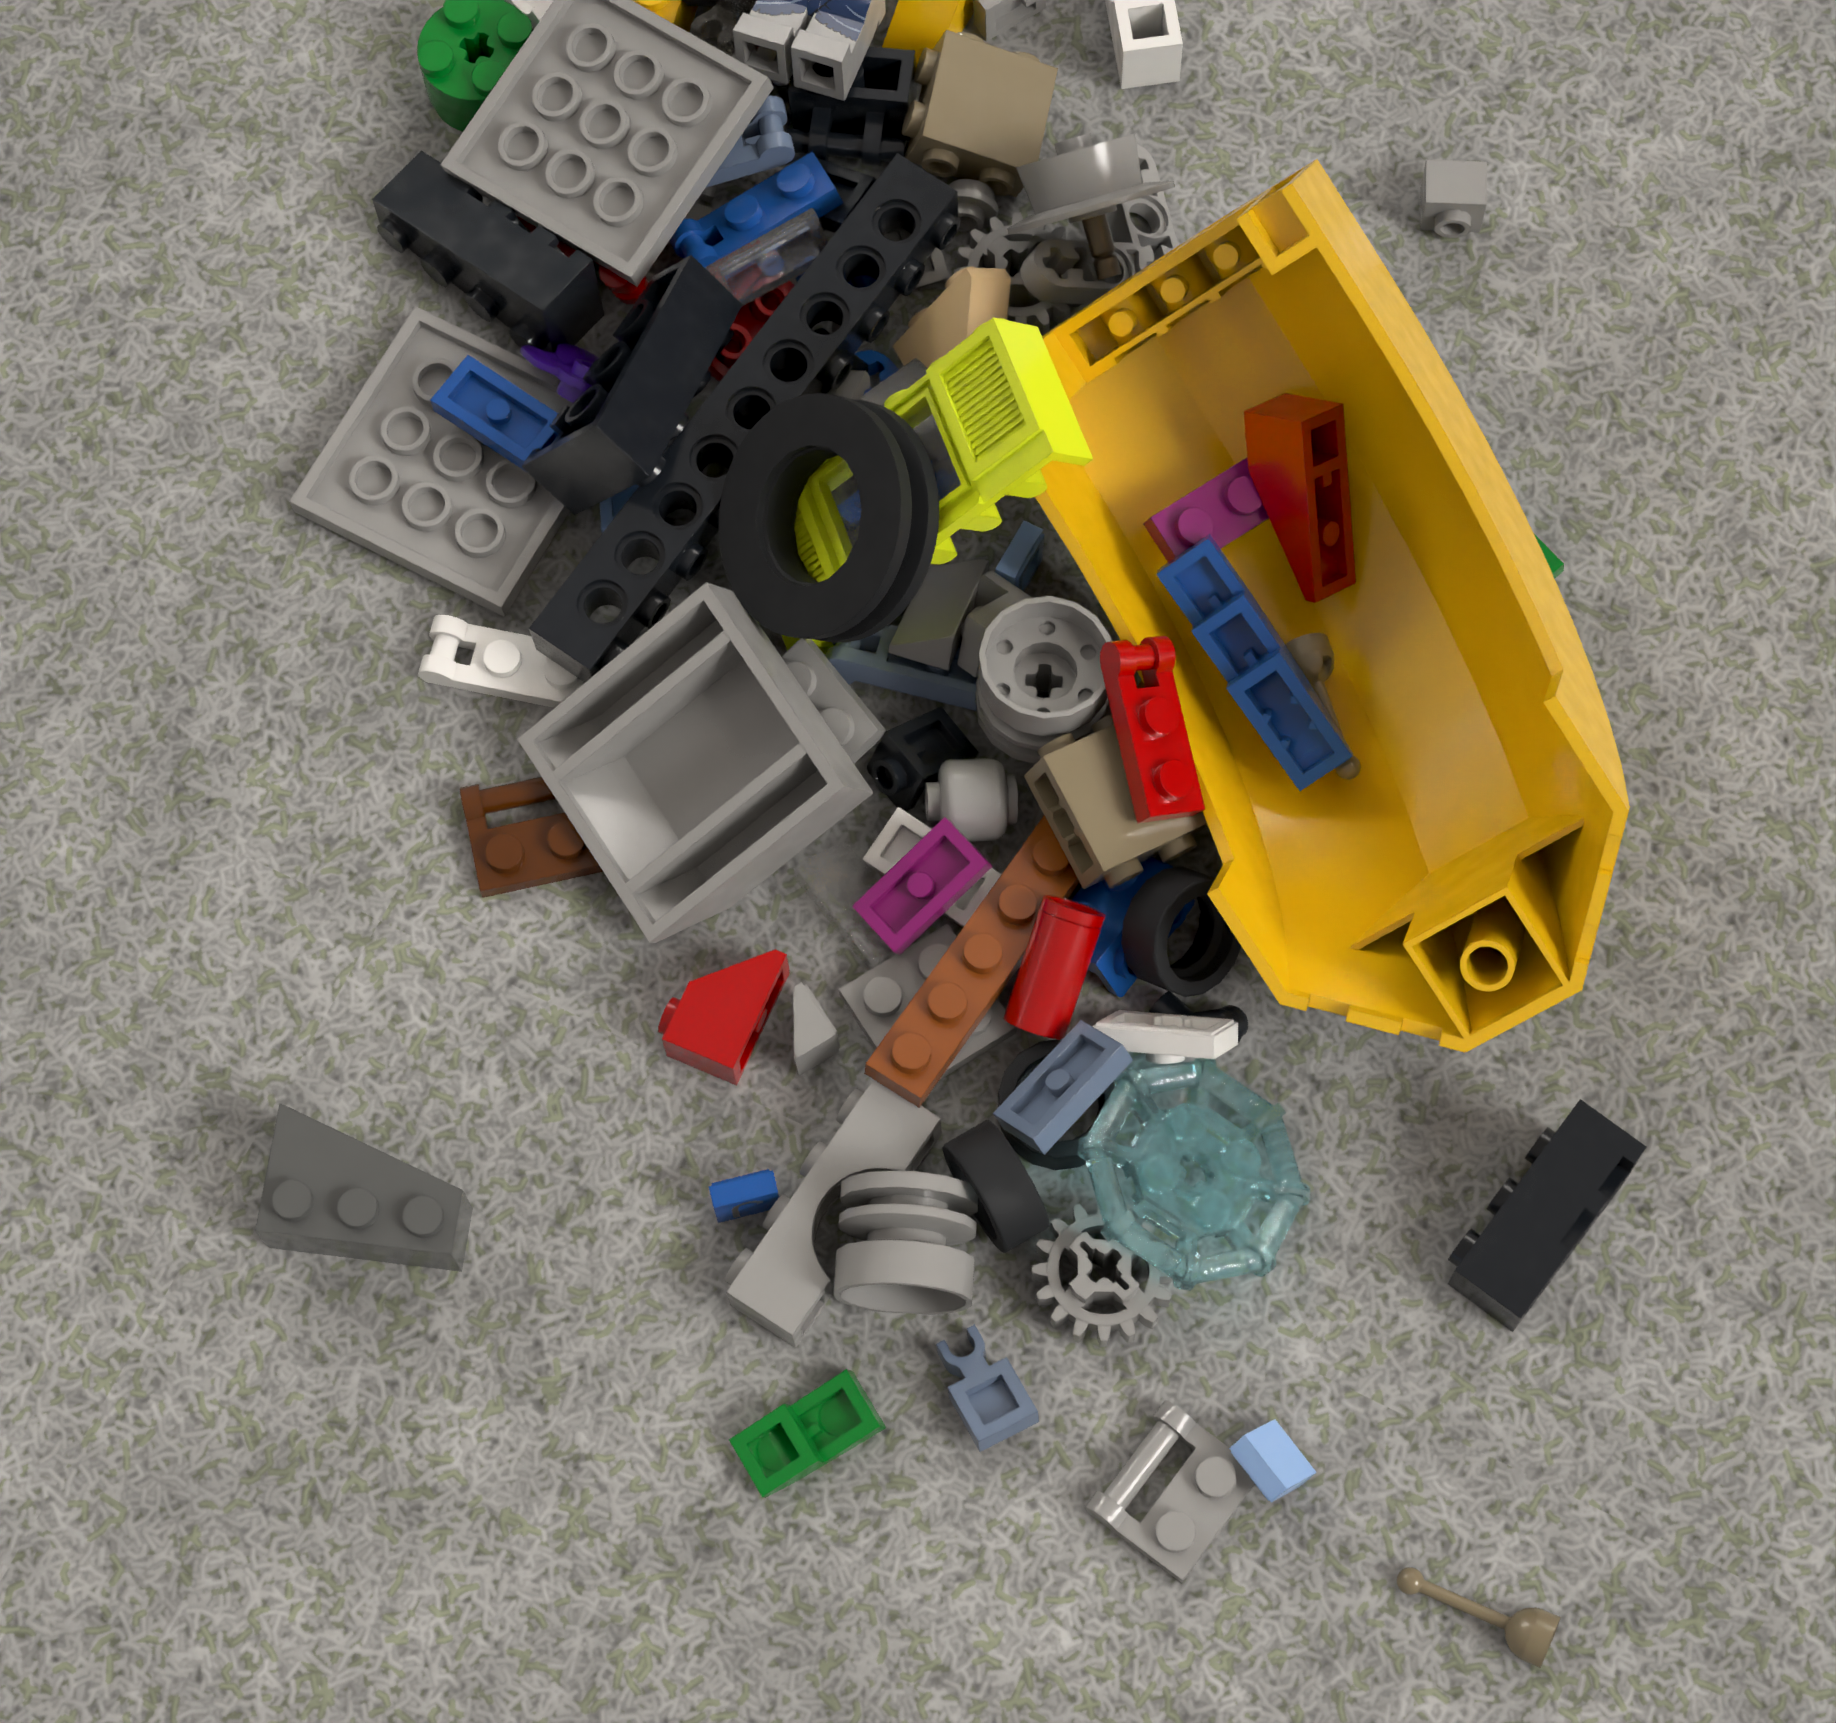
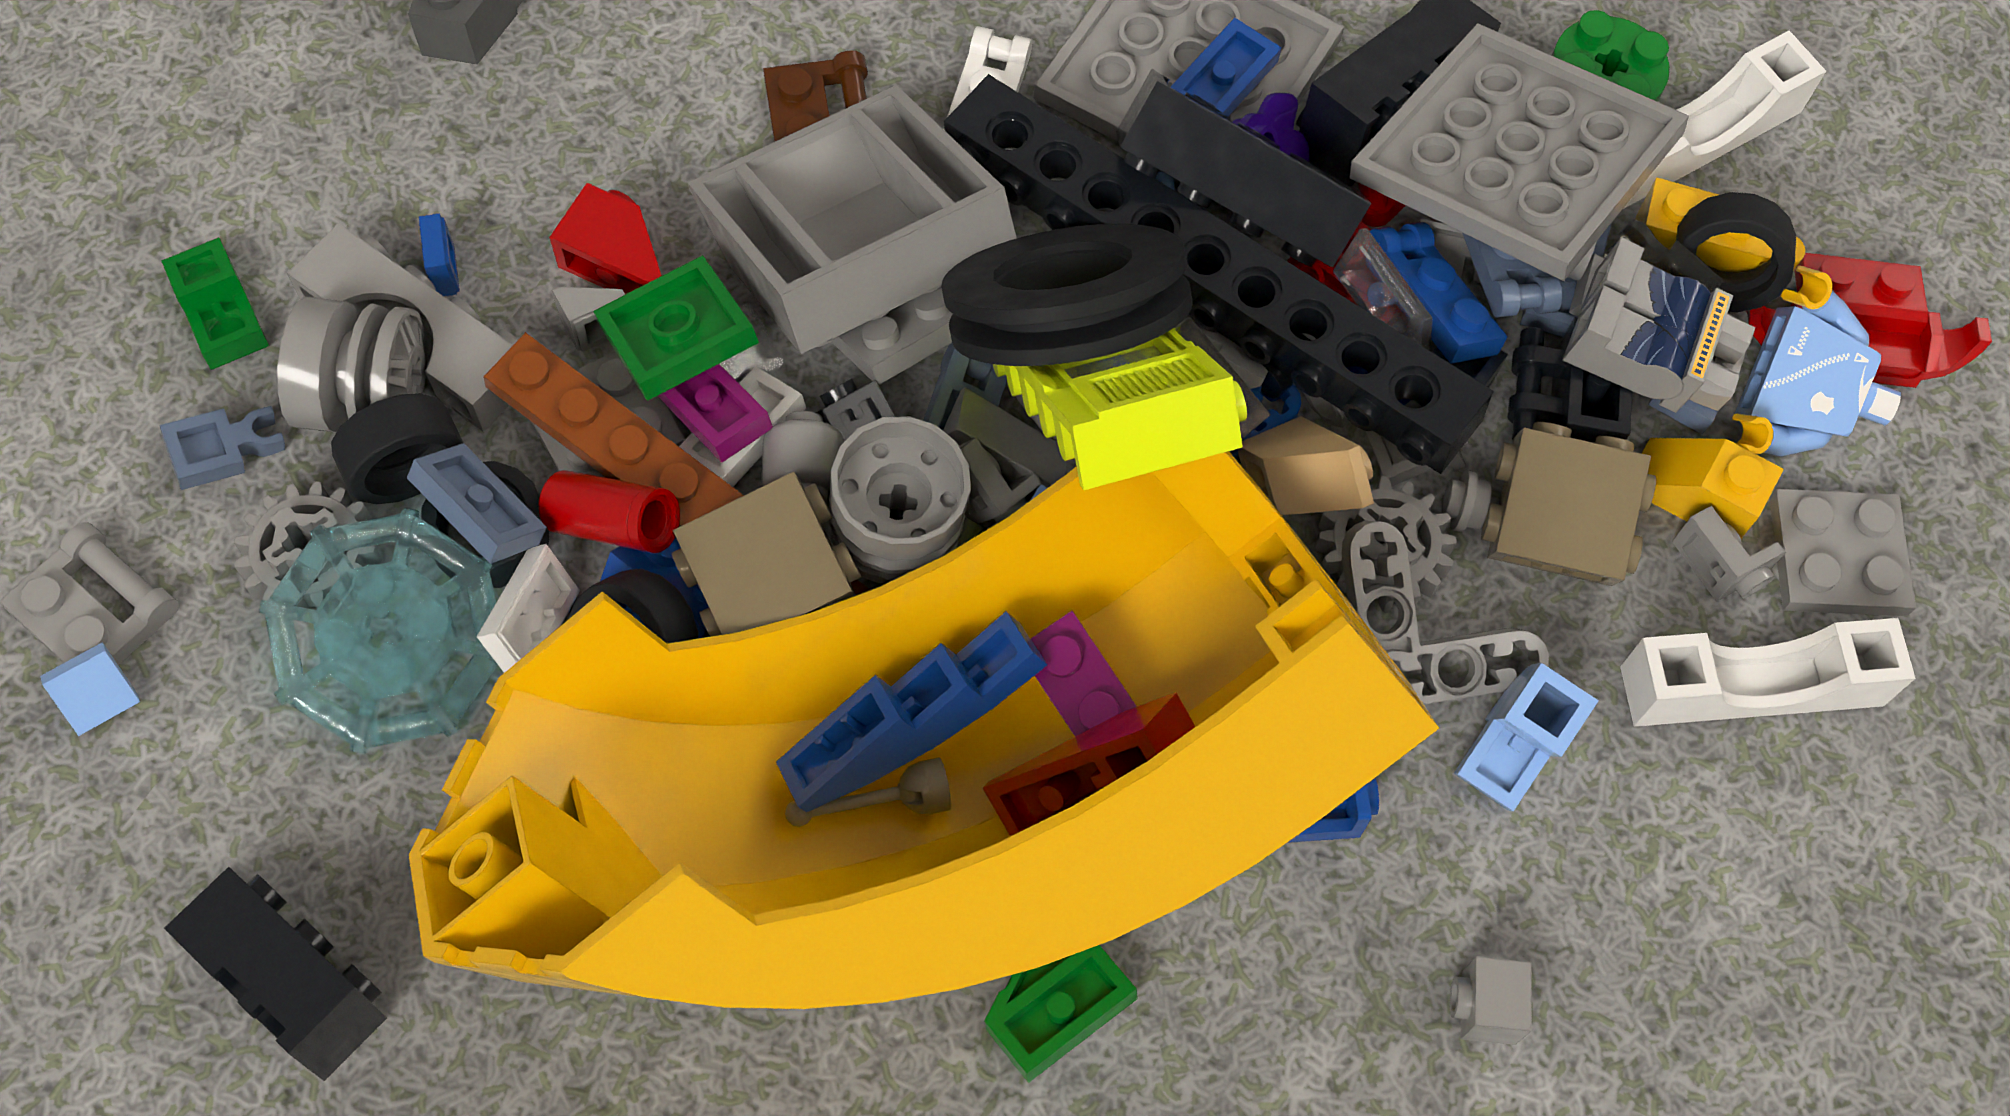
camera: 85 degrees right, 5 degrees down
(844, 921) = (675, 327): none -> green plate
(1083, 187) = (1459, 567): light grey piece -> none
(1151, 729) = (812, 577): red plate -> none
(1201, 158) = (1523, 729): none -> light blue brick

